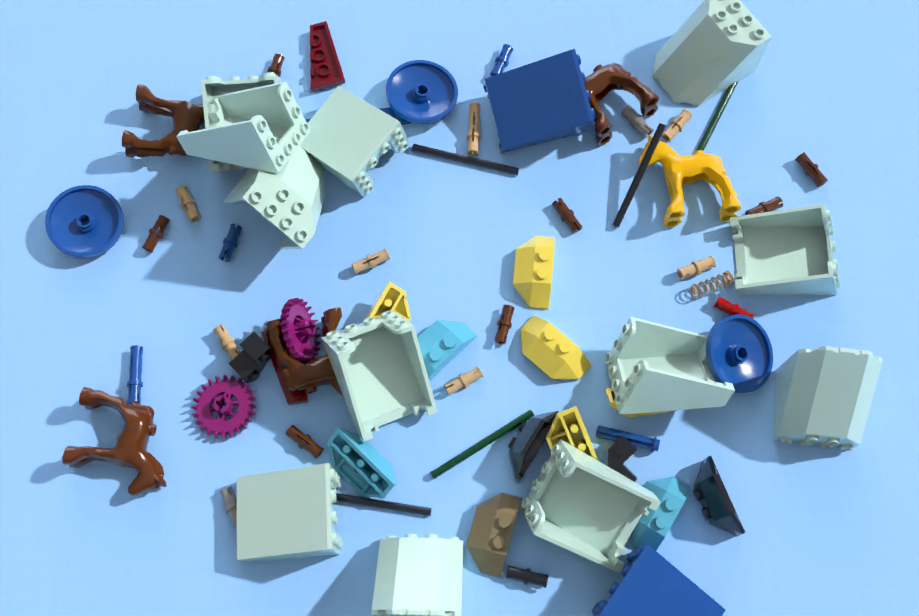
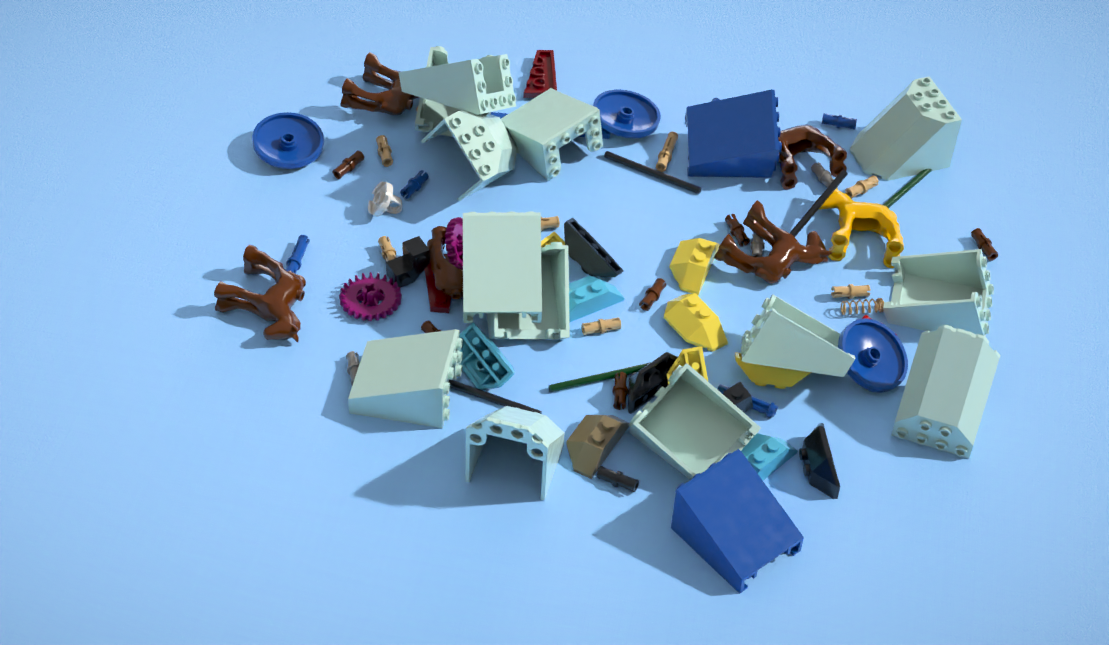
camera: 10 degrees right, 25 degrees down
(205, 277) = (382, 199): none -> white tile
(351, 369) = (502, 264): none -> light aqua windscreen
(432, 293) = (588, 252): none -> black wedge
(502, 460) = (620, 391): none -> reddish brown pin
(592, 232) = (757, 246): none -> light grey pin
(620, 242) = (784, 252): none -> reddish brown animal
(635, 42) = (839, 121): none -> blue pin

